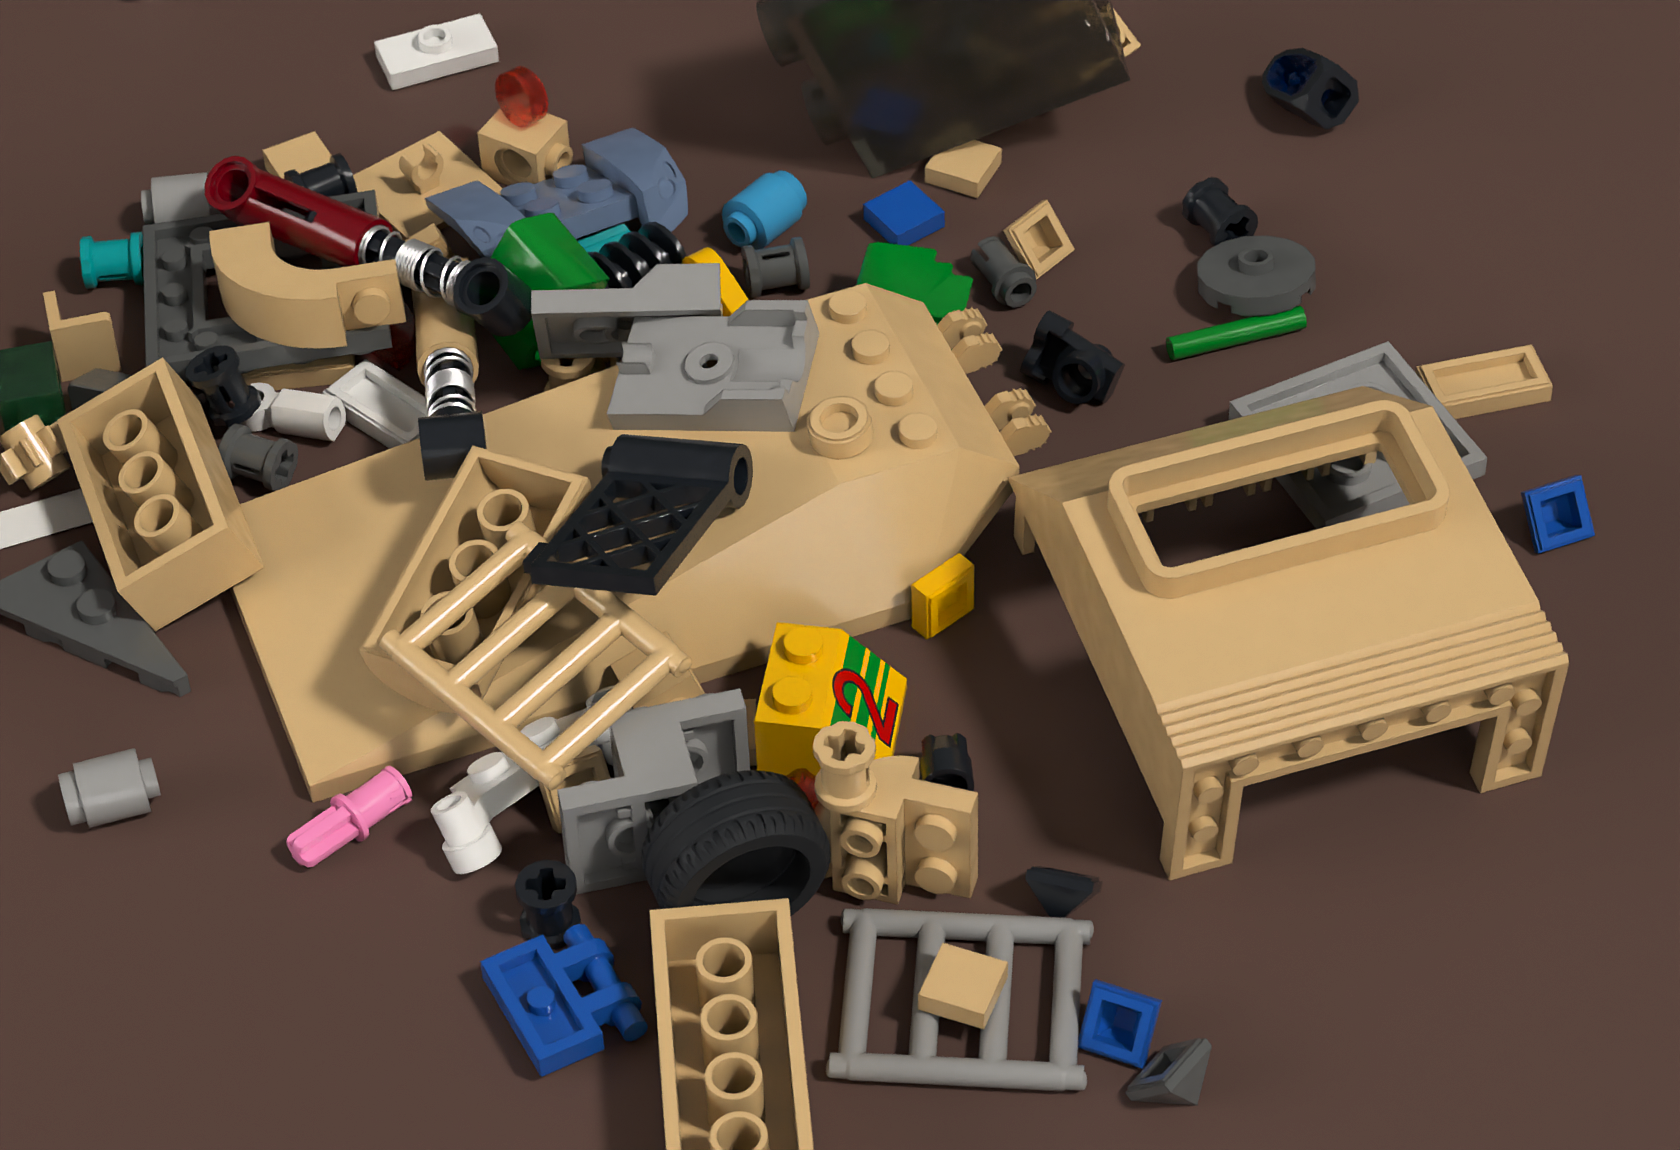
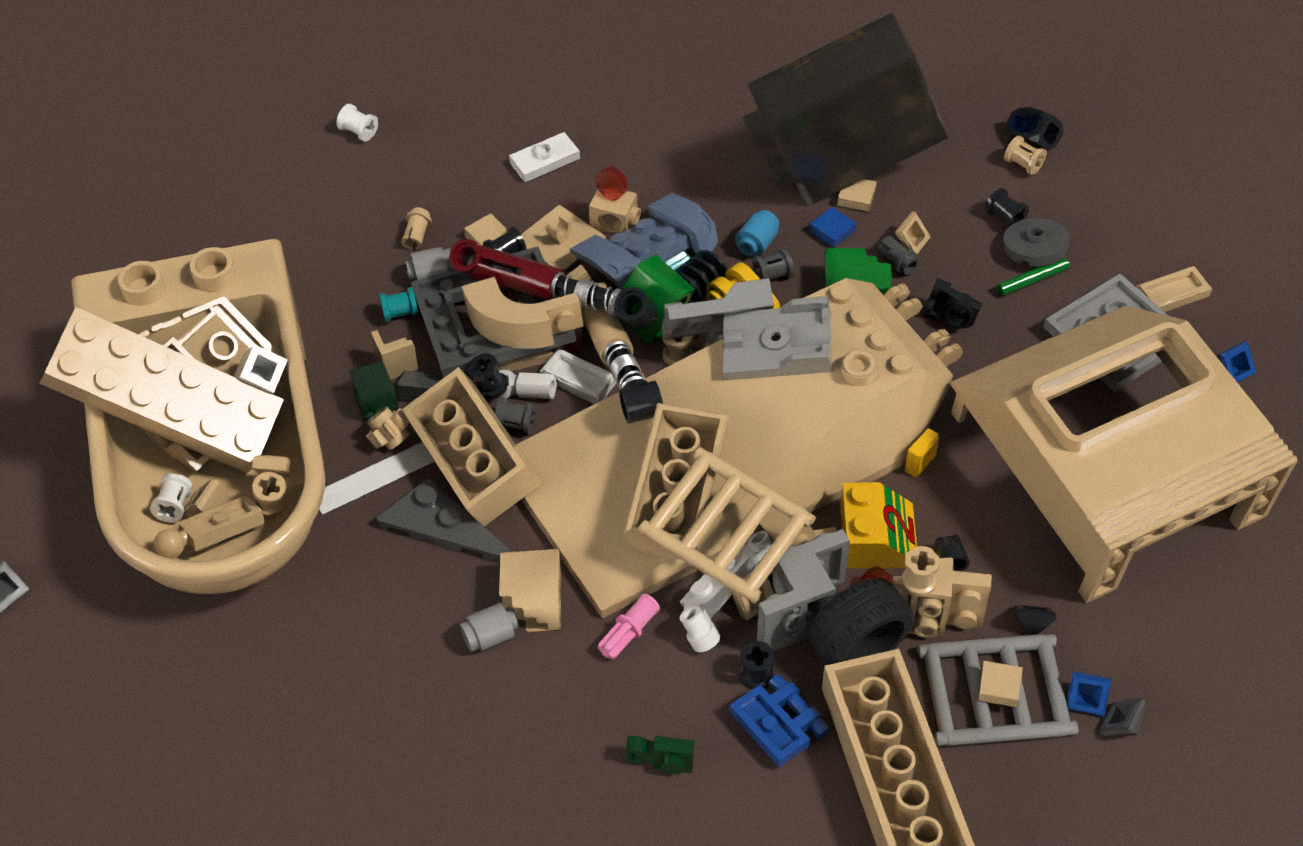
camera: 10 degrees left, 5 degrees up
(186, 133) = (417, 222): none -> tan pin
(203, 732) = (532, 587): none -> tan piece
(351, 1025) = (665, 753): none -> dark green plate
(653, 478) = (772, 409): black piece -> none
(1279, 130) = (1025, 155): none -> tan bush

